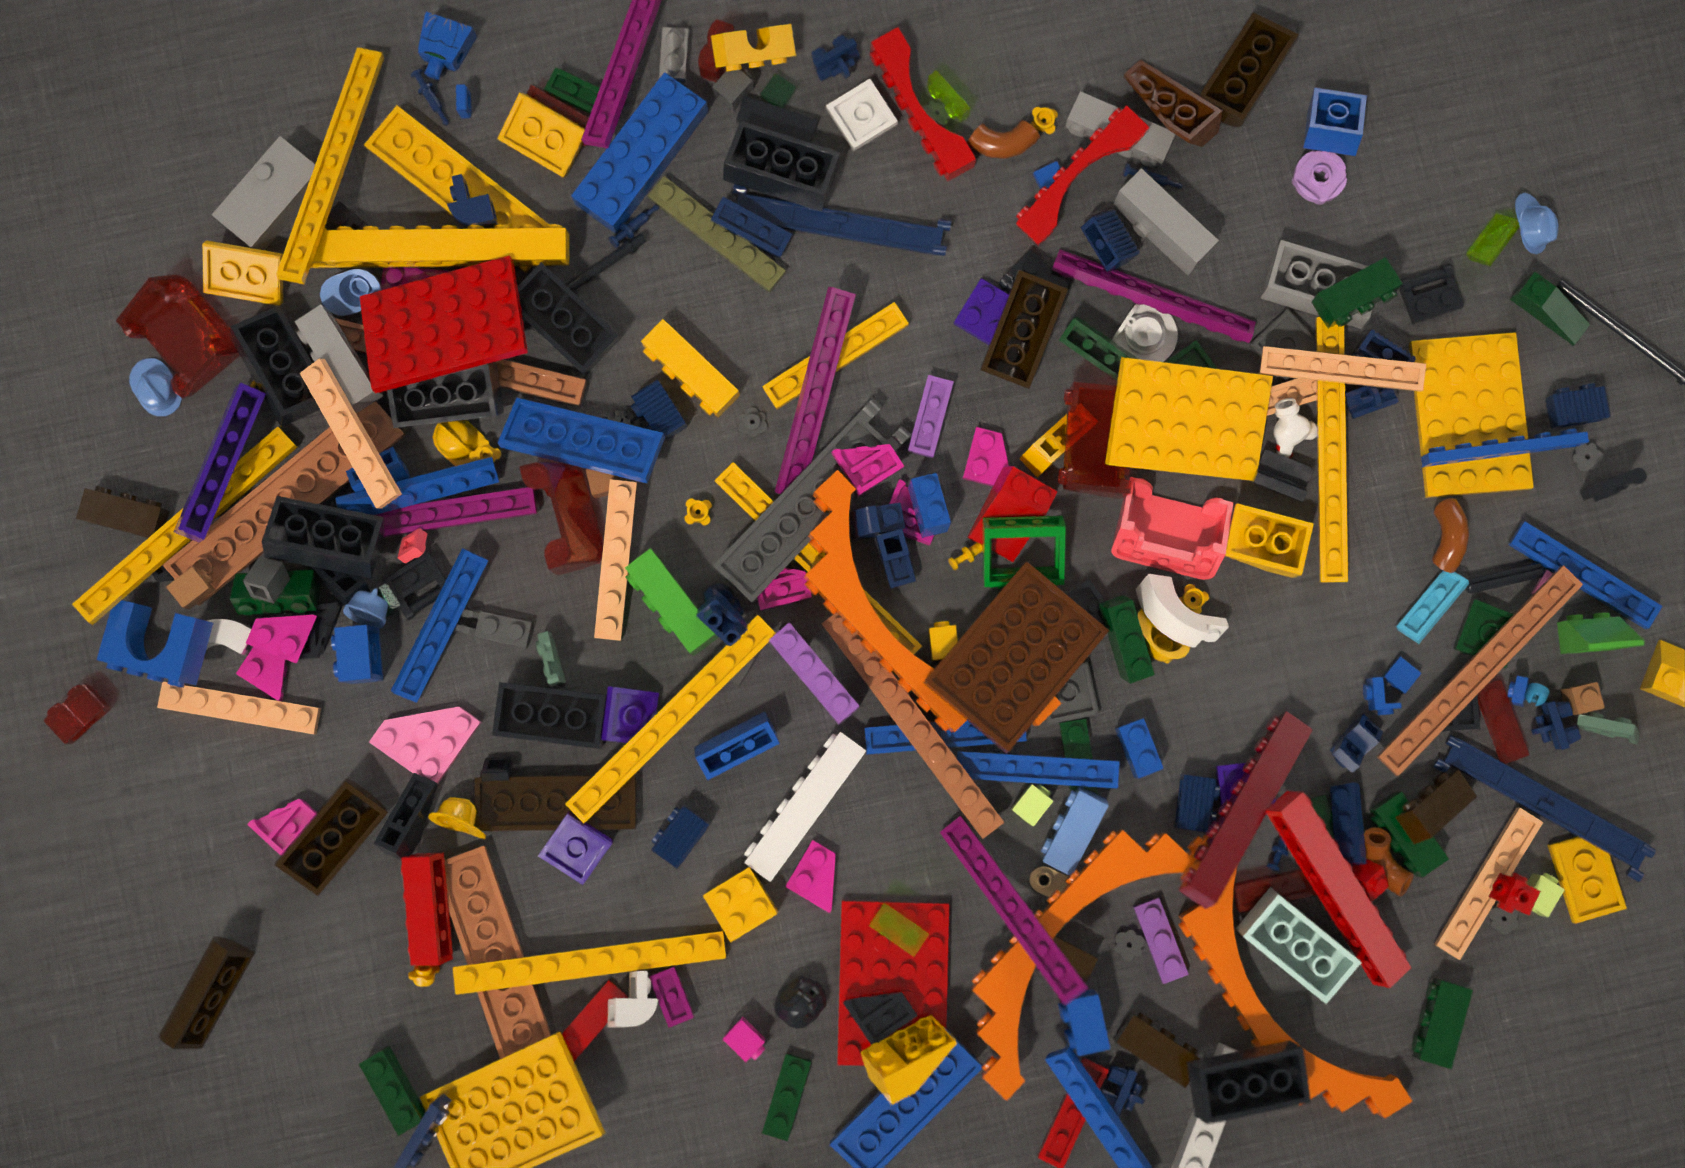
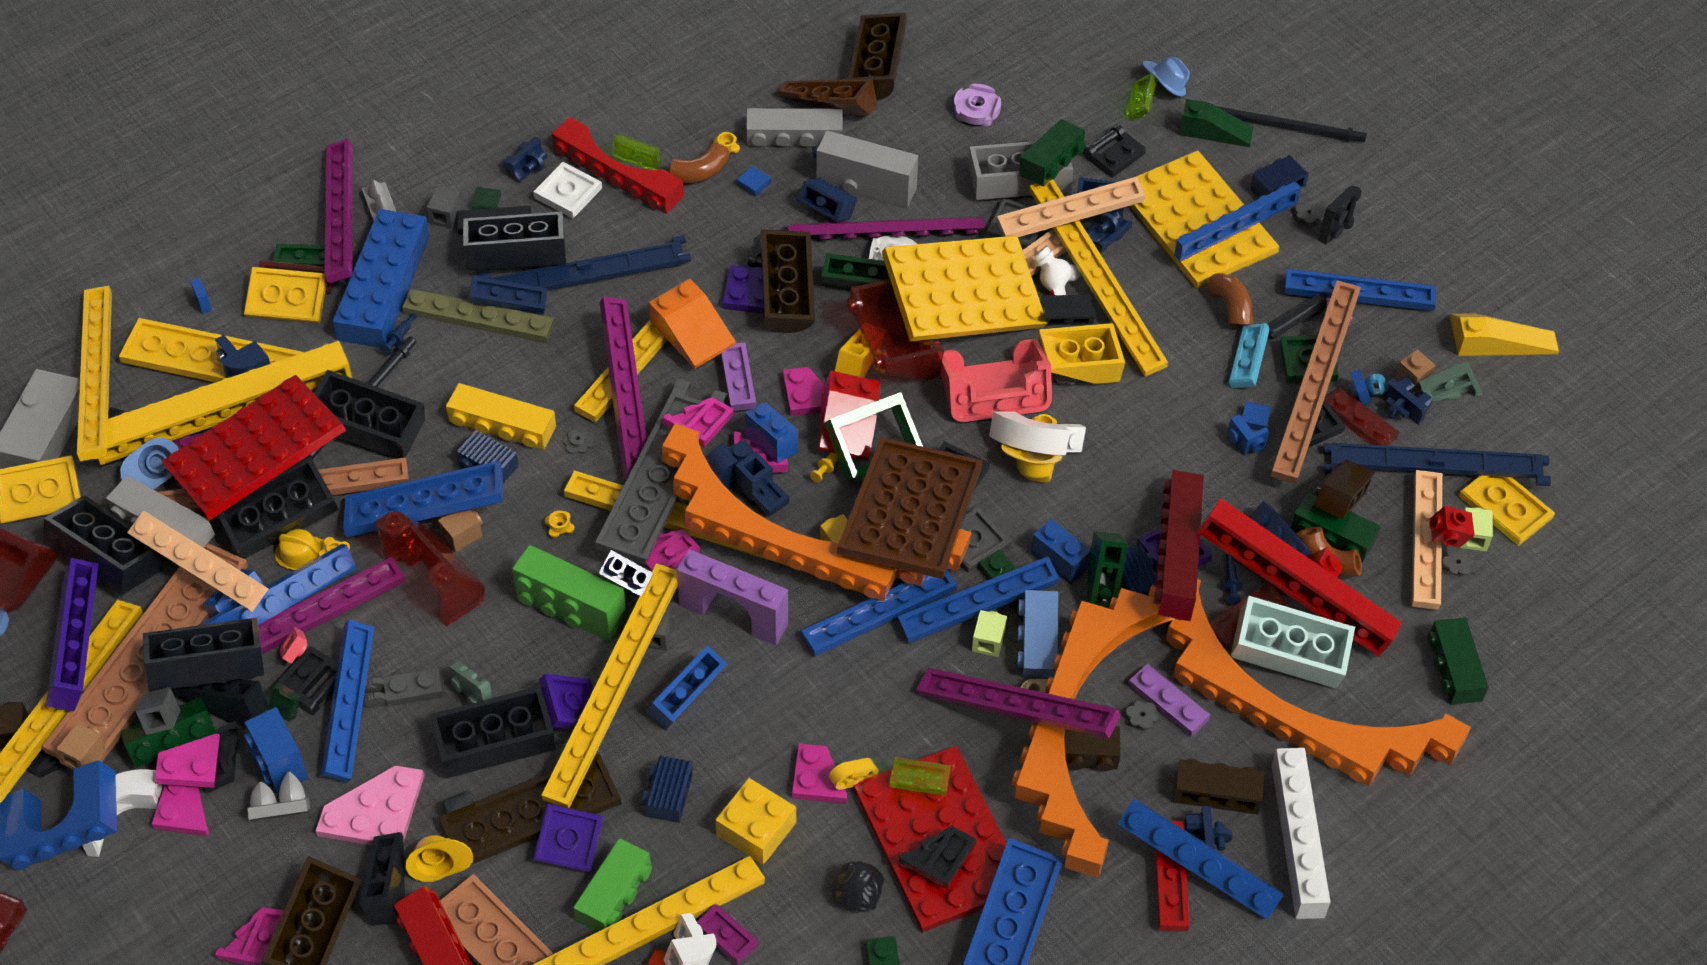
camera: 30 degrees left, 30 degrees down
(239, 708) = (165, 856): light nougat plate -> none
(352, 708) = (291, 799): none -> light grey tile
(367, 609) = (270, 696): medium blue piece -> none
(426, 90) = (162, 301): dark blue piece -> none
(444, 44) = (166, 261): blue torso -> none
(595, 911) = (613, 886): none -> bright green brick
(615, 559) = (499, 584): light nougat plate -> none
(706, 57) = (418, 185): clear red brick -> none
(745, 1040) = (819, 941): dark pink brick -> none
(773, 44) = (462, 165): yellow arch -> none
(805, 806) = (778, 713): white brick -> none
(844, 896) = (851, 772): none -> yellow beam
(907, 1058) = (984, 874): yellow slope -> none
(908, 344) = (690, 323): none -> orange slope
(916, 729) = (853, 610): nougat plate -> none
(1085, 1024) = (1137, 776): blue brick -> none
(1120, 135) = (795, 122): red arch -> none
(1126, 639) = (1003, 468): dark green brick -> none
(1165, 797) = (1105, 567): none -> dark green slope
(1248, 1082) = (1313, 753): black brick -> none
(1335, 121) = (968, 60): blue brick -> none
(1356, 742) = (1247, 475): dark blue brick -> none
(1596, 634) = (1396, 322): bright green slope -> none

